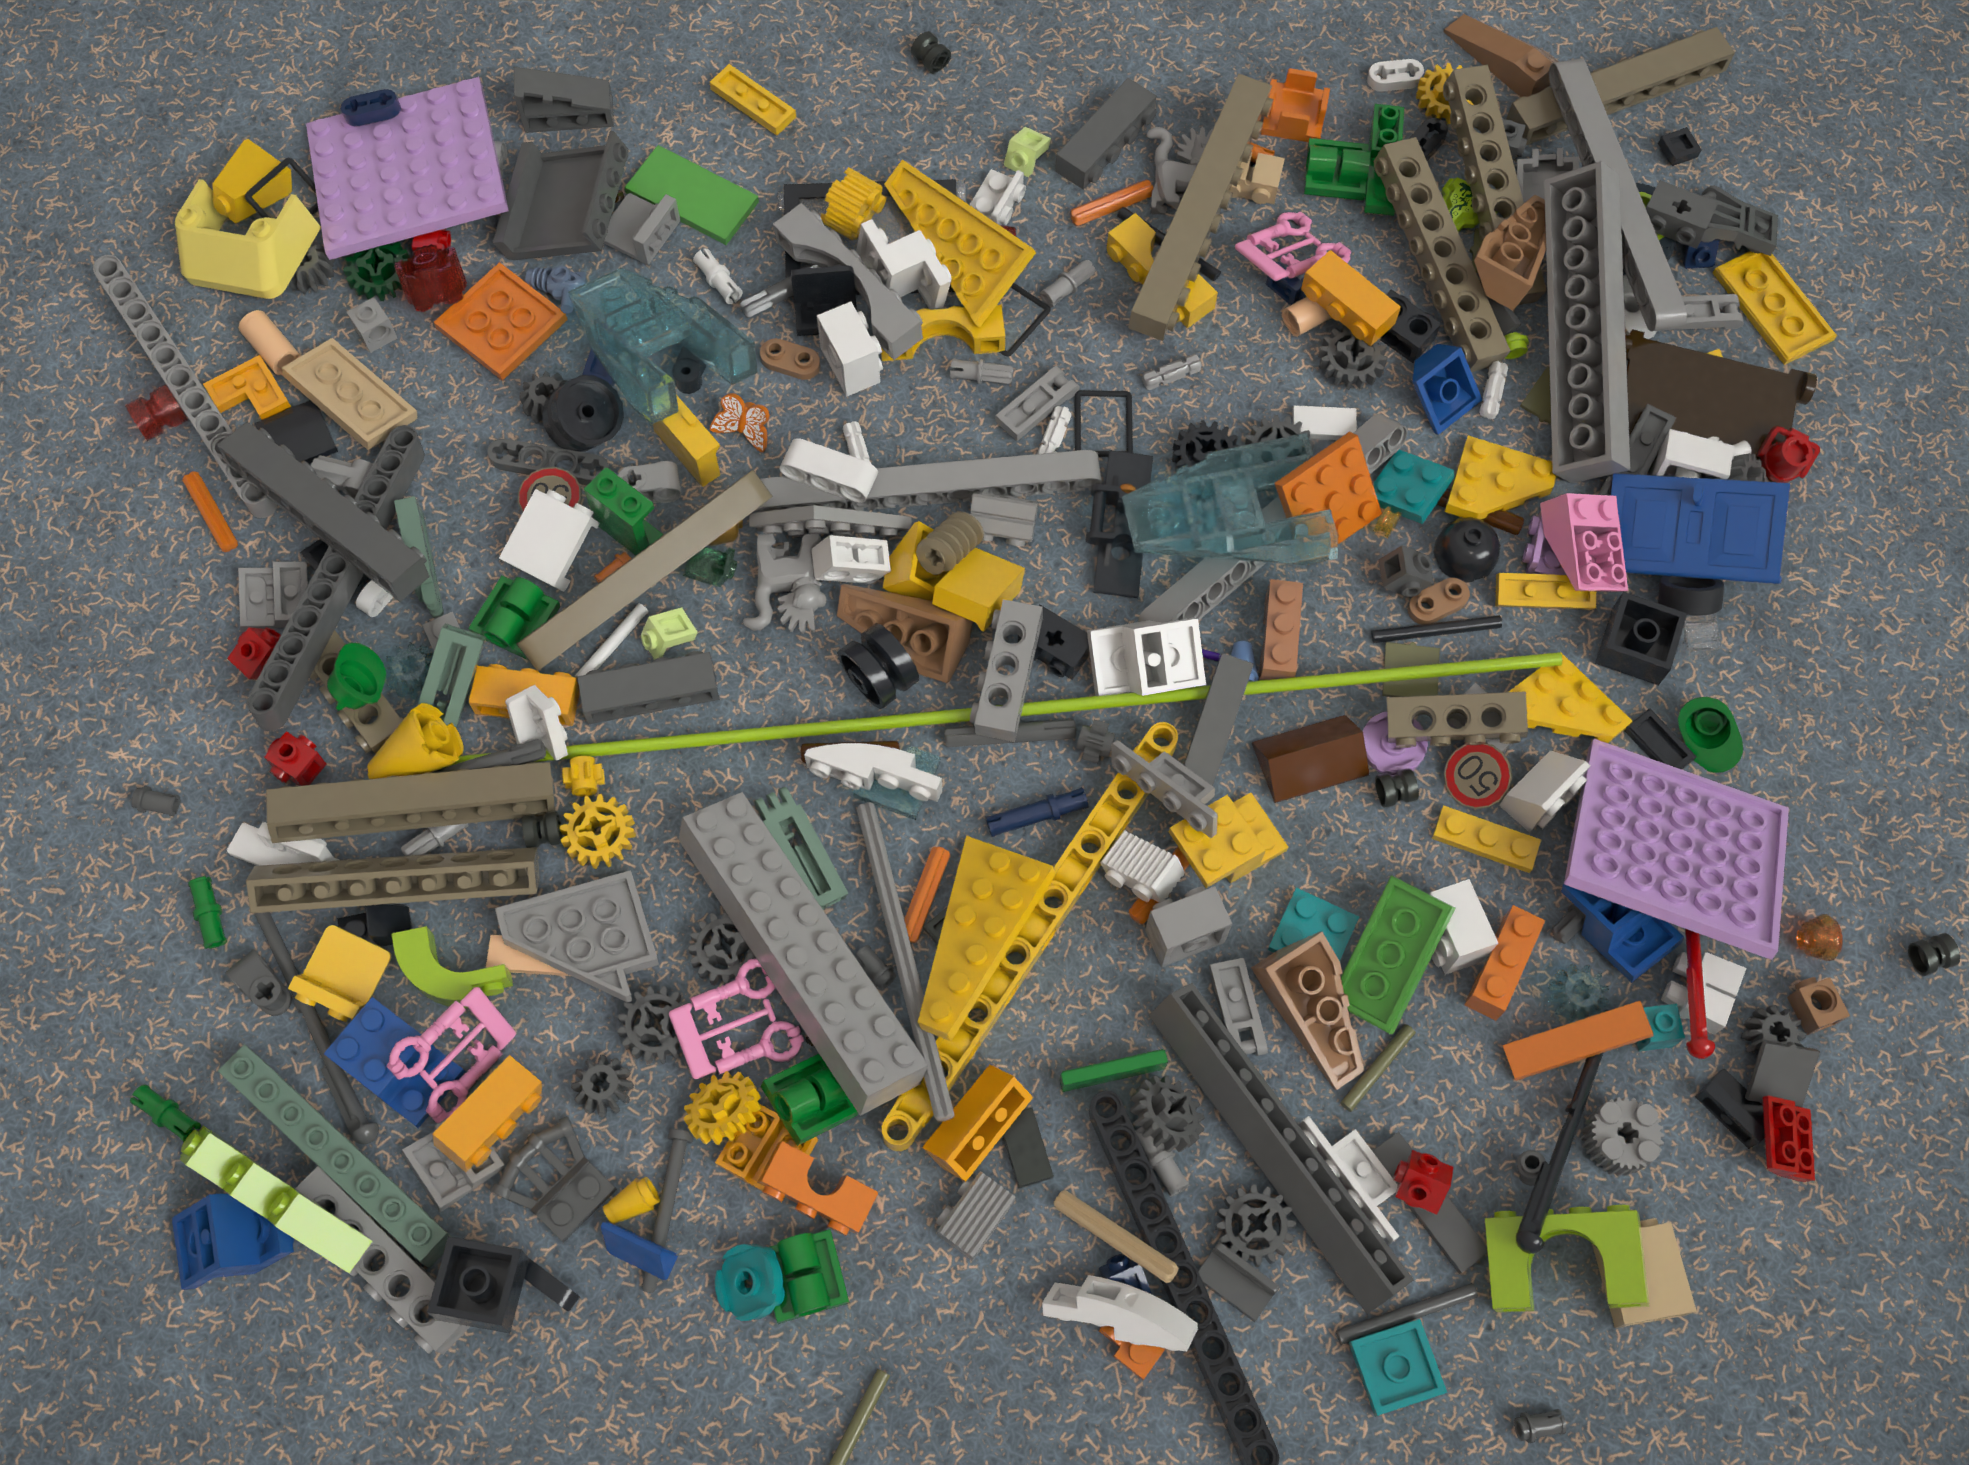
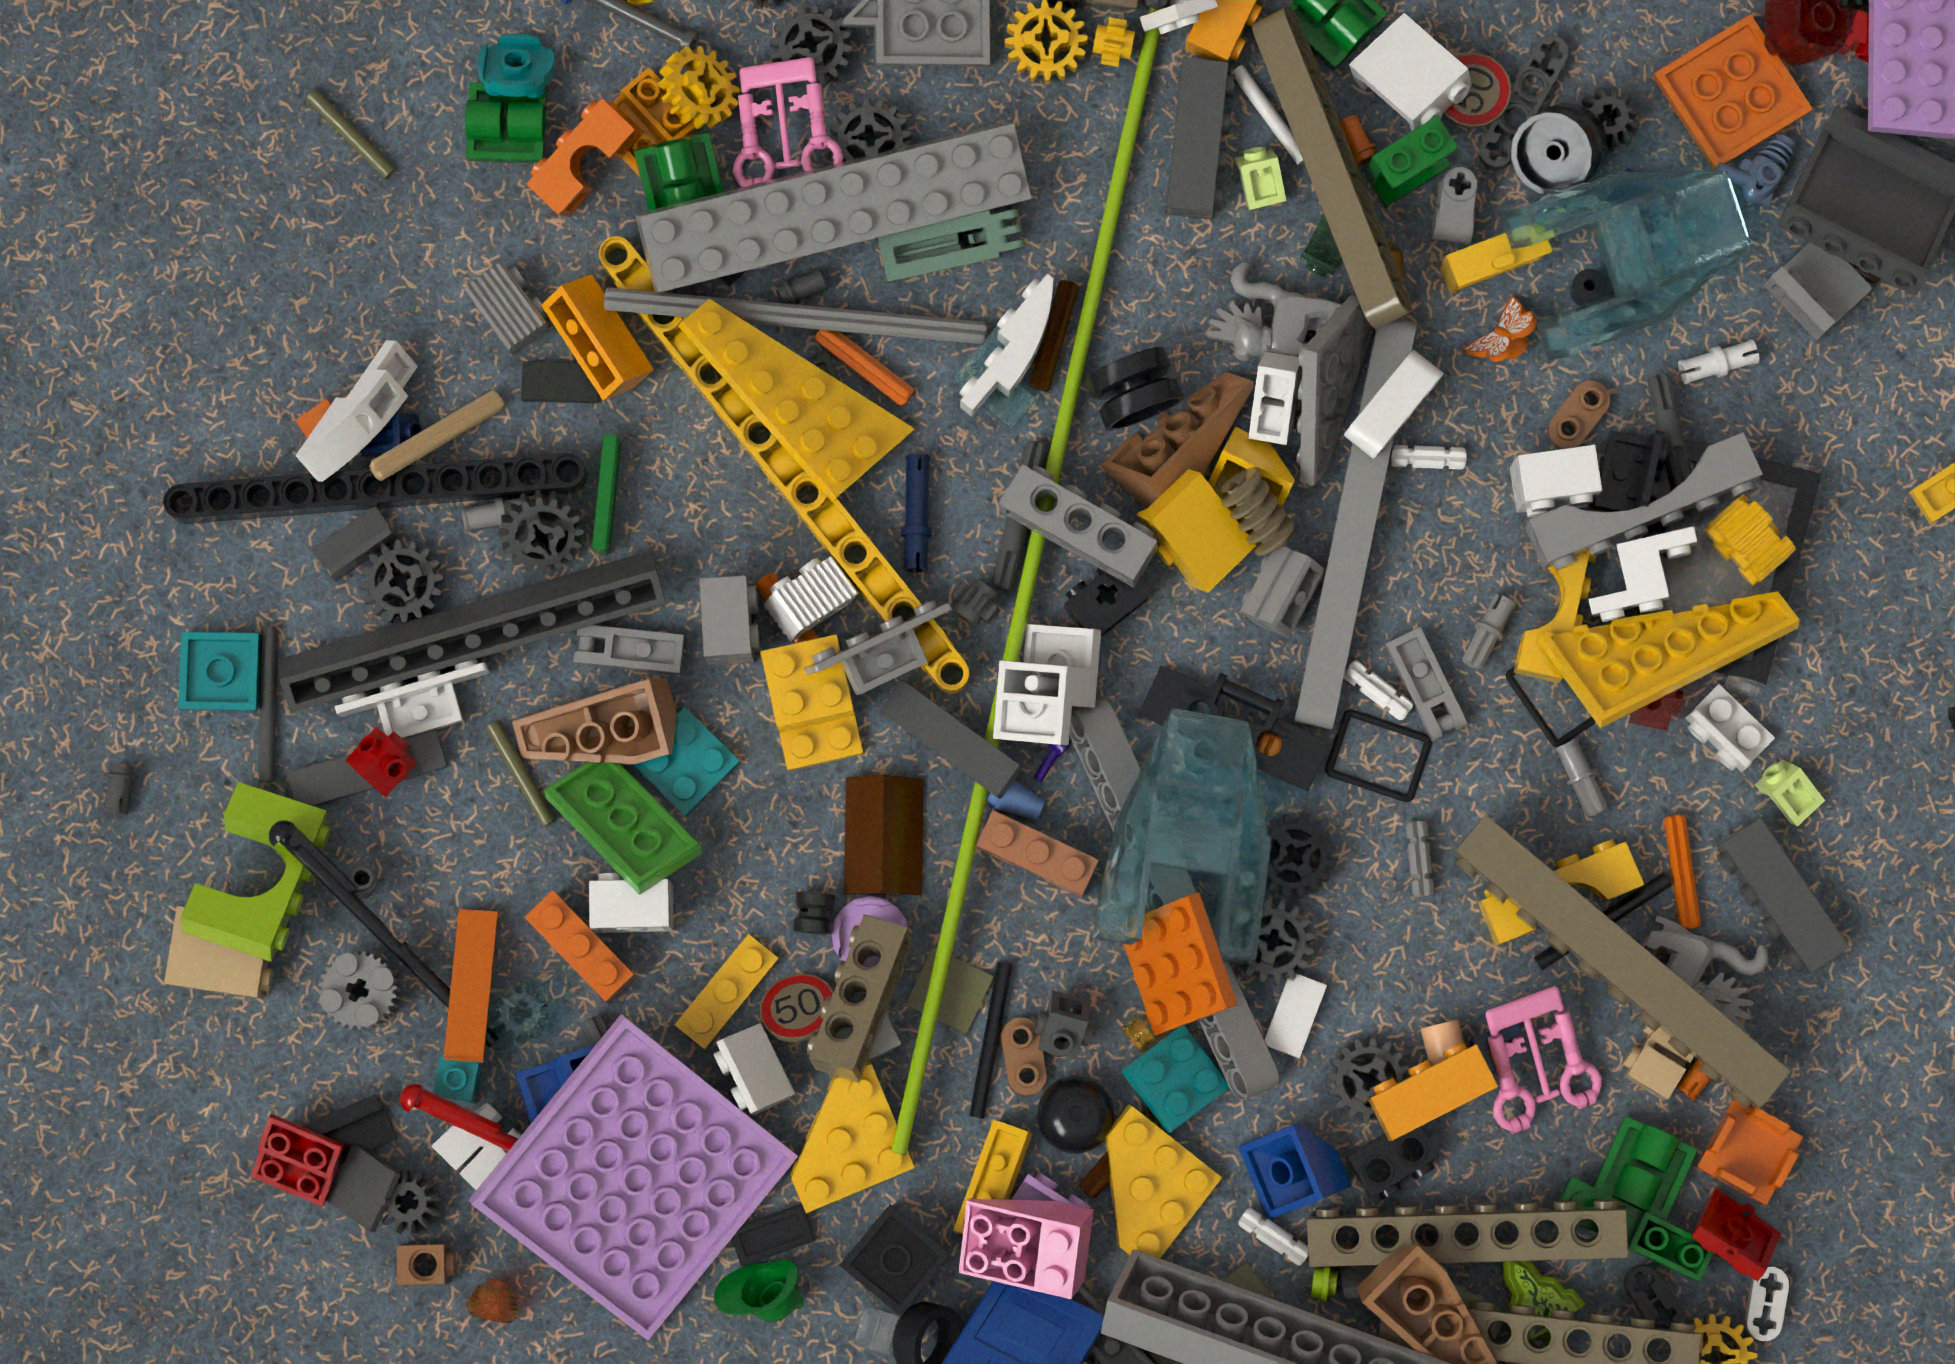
camera: 110 degrees right, 15 degrees up
(702, 197) = (1850, 364): bright green tile -> none
(1360, 94) = (1737, 1238): none -> red plate

